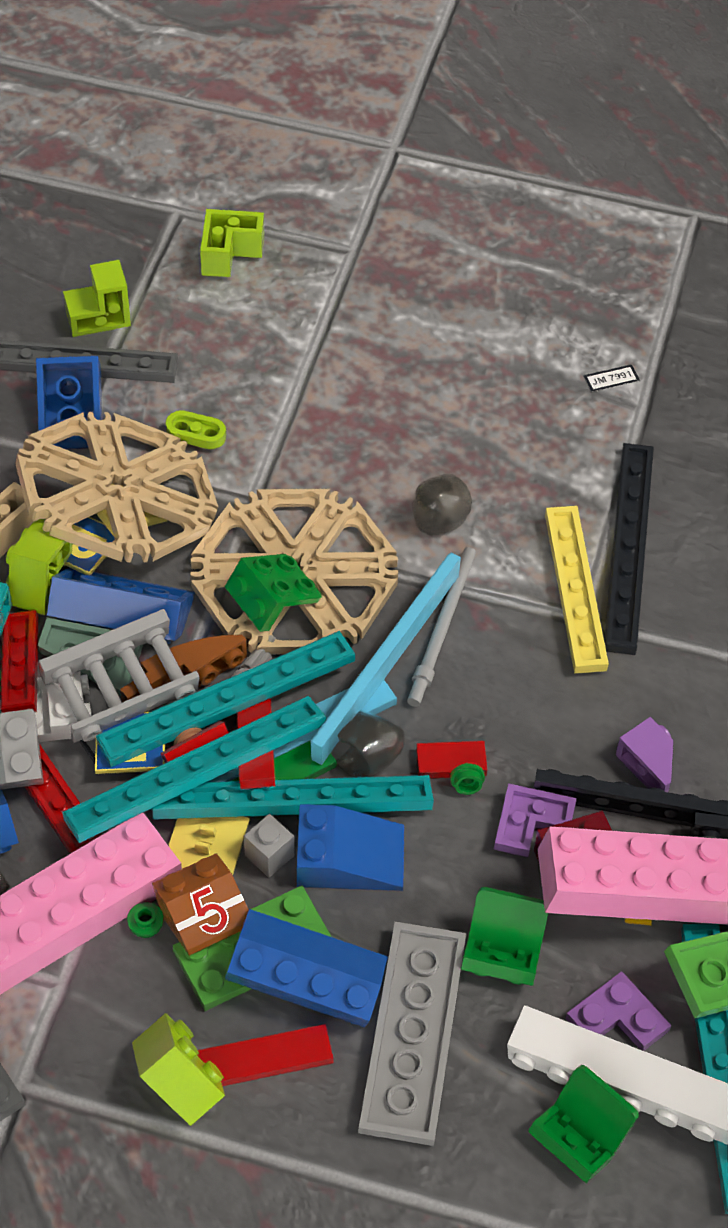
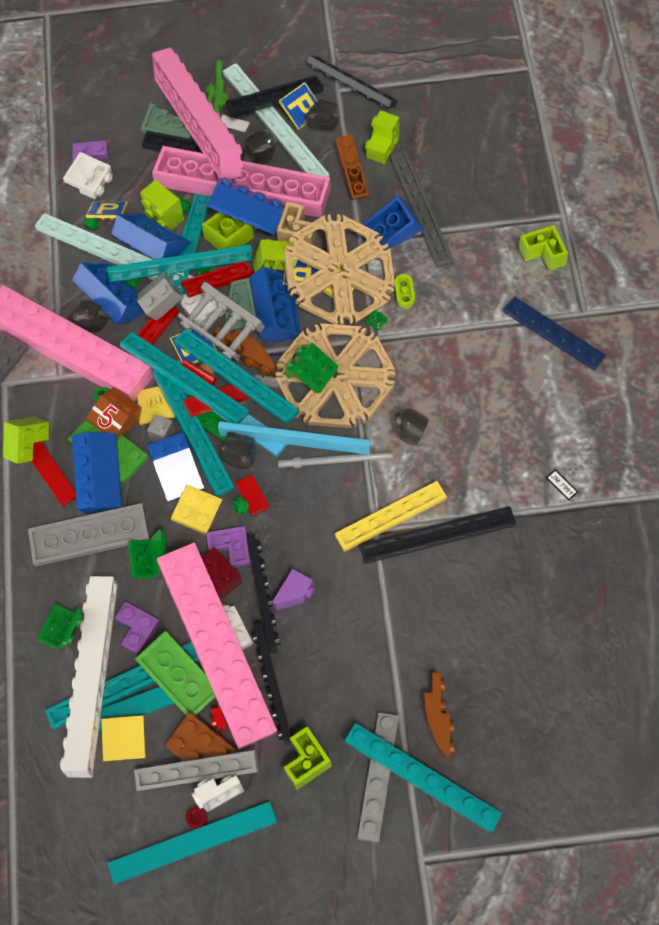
camera: 75 degrees right, 10 degrees up
(99, 306) = (464, 207): lime brick -> none
(225, 483) = (376, 315): none -> green plate
(367, 292) = (554, 333): none -> dark blue plate
(442, 846) = (196, 509): none -> light yellow plate

